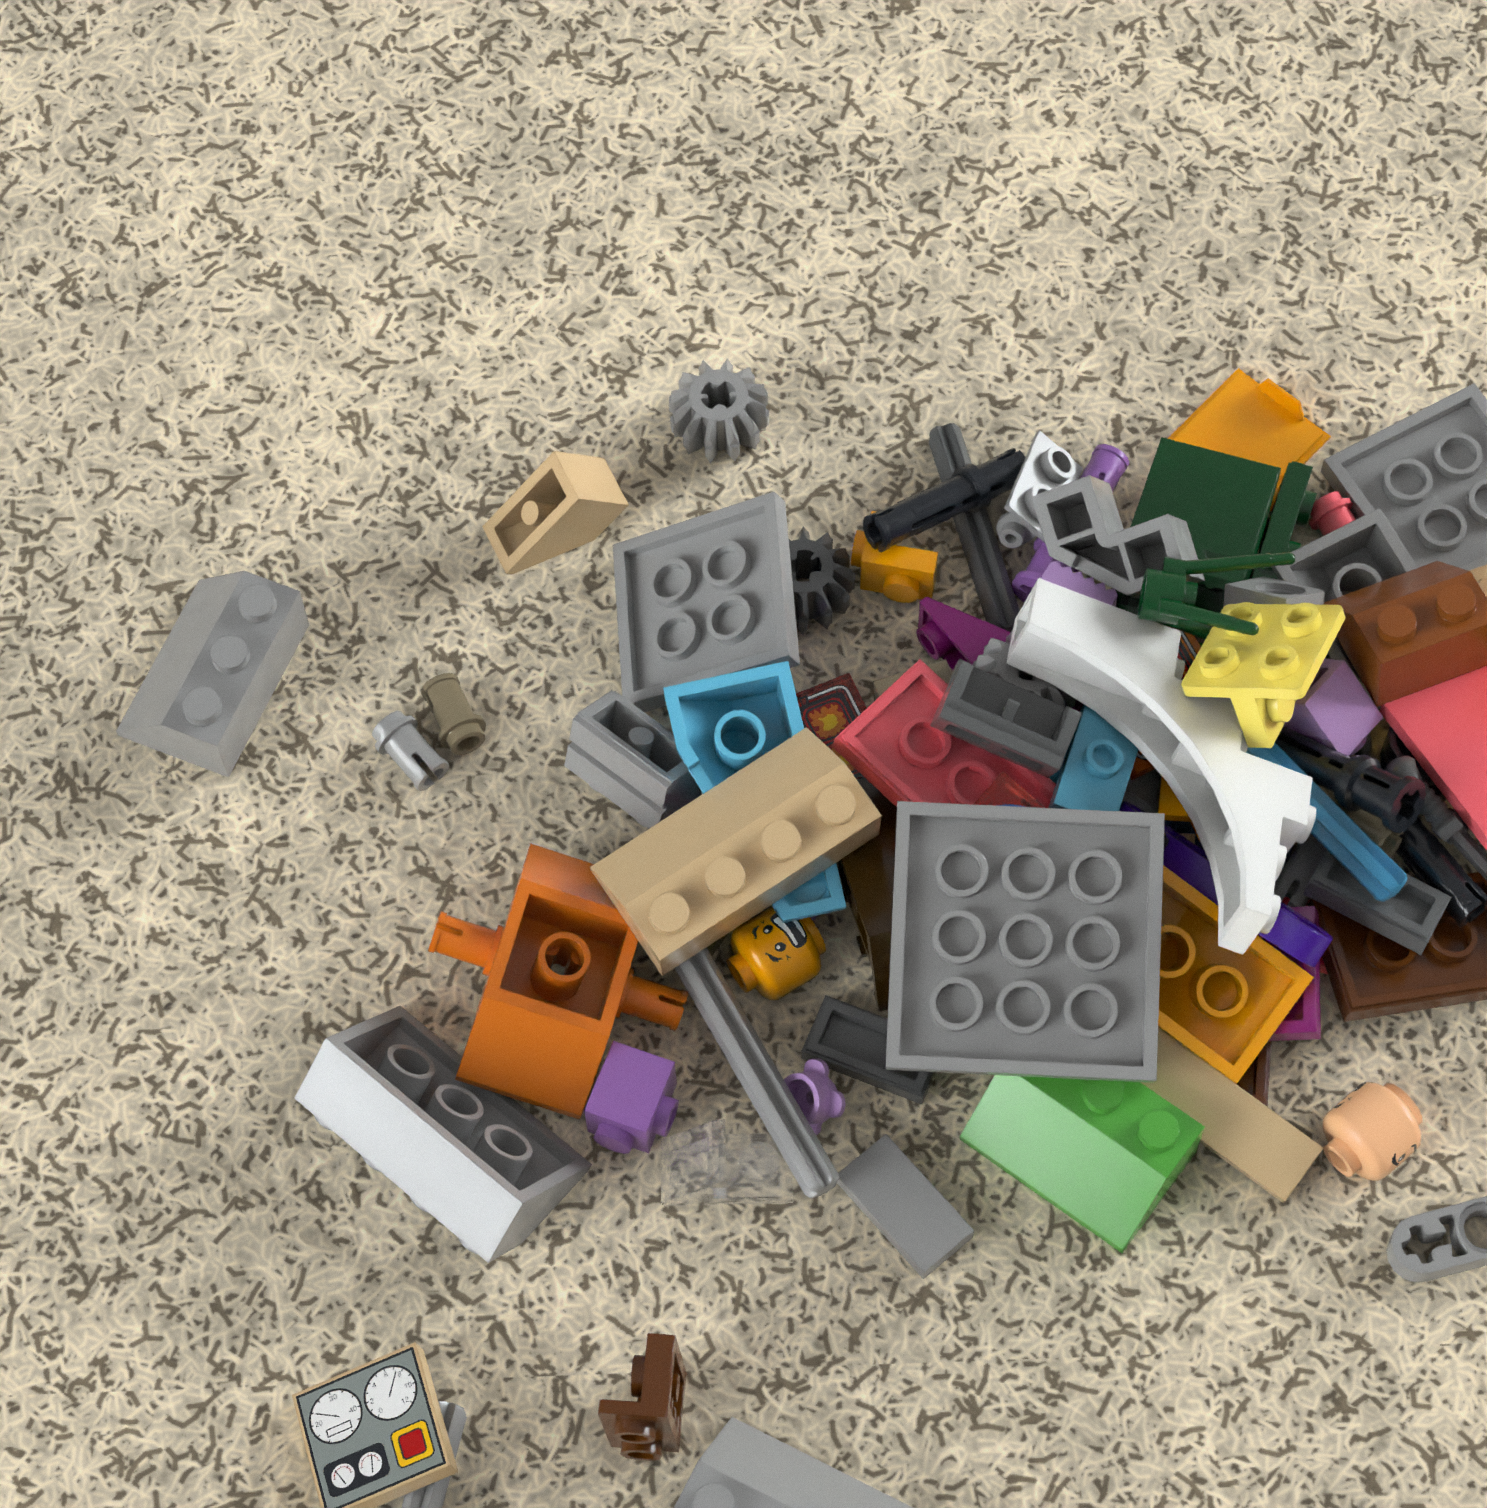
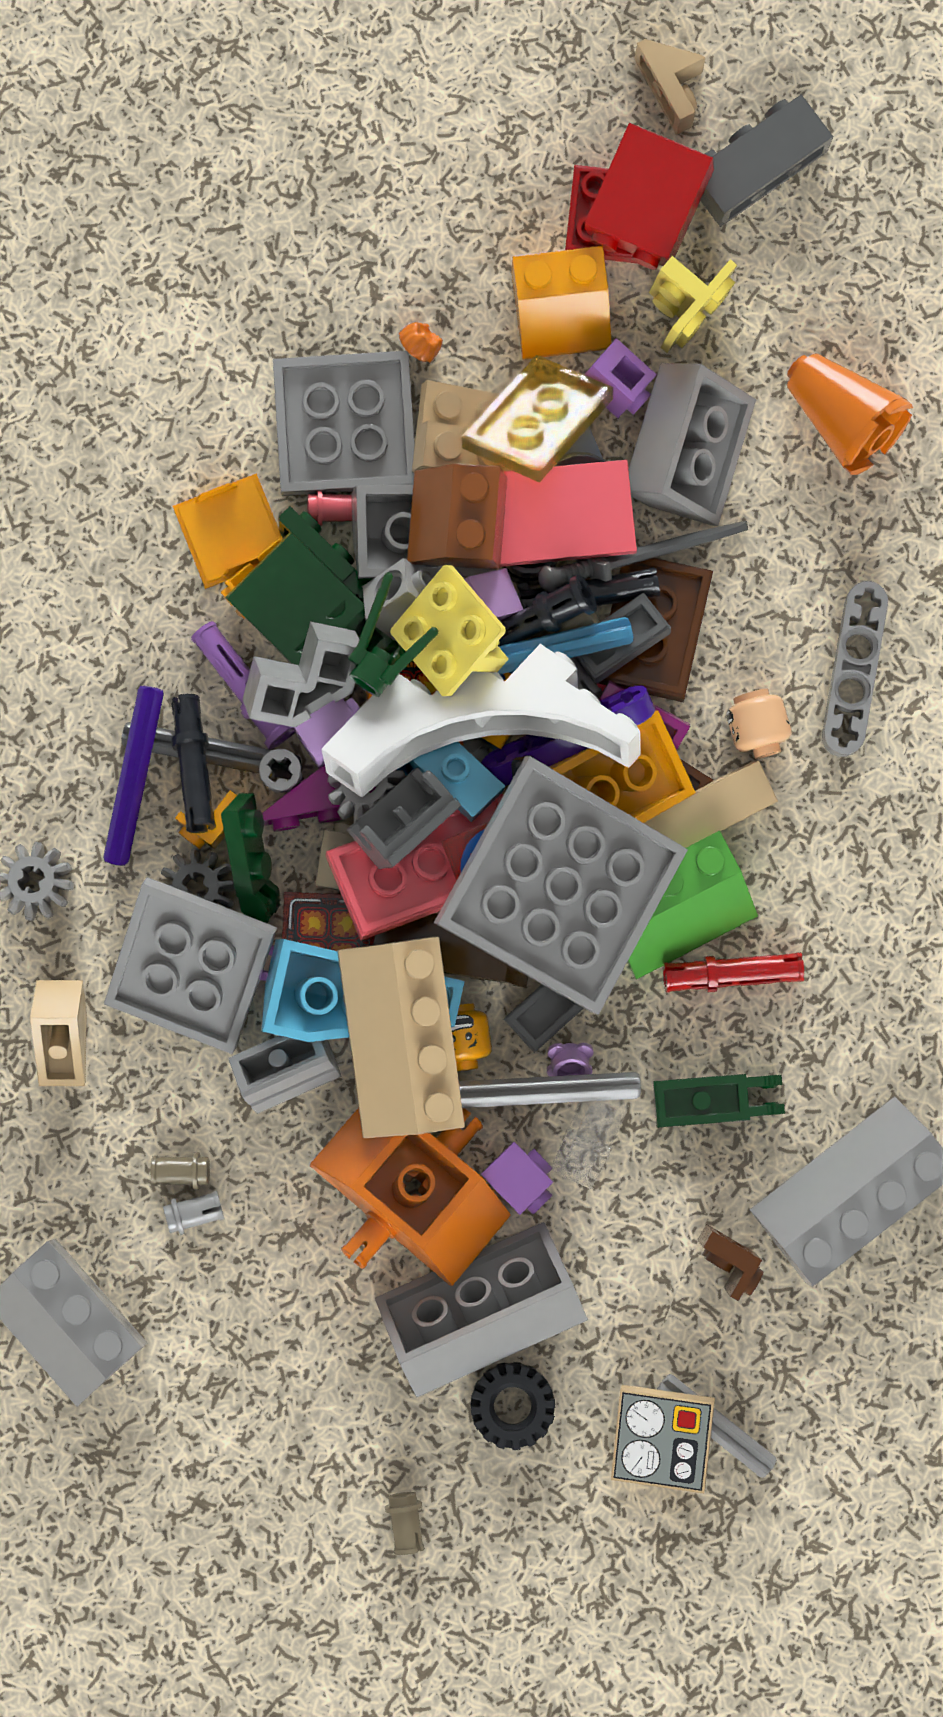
camera: 70 degrees left, 20 degrees up
(129, 1164) = (405, 1522): none -> dark tan pin
(327, 1189) = (522, 1433): none -> black tyre
(853, 1298) = (711, 1099): none -> dark green hinge
(867, 607) = (248, 860): none -> dark green hinge
(898, 453) = (133, 775): none -> dark purple axle
(905, 1206) = (666, 1037): light grey tile -> none
(995, 577) = (280, 756): none -> light grey bush
(1040, 1260) = (742, 971): none -> red pin
(1043, 469) = (213, 695): light grey hinge -> none

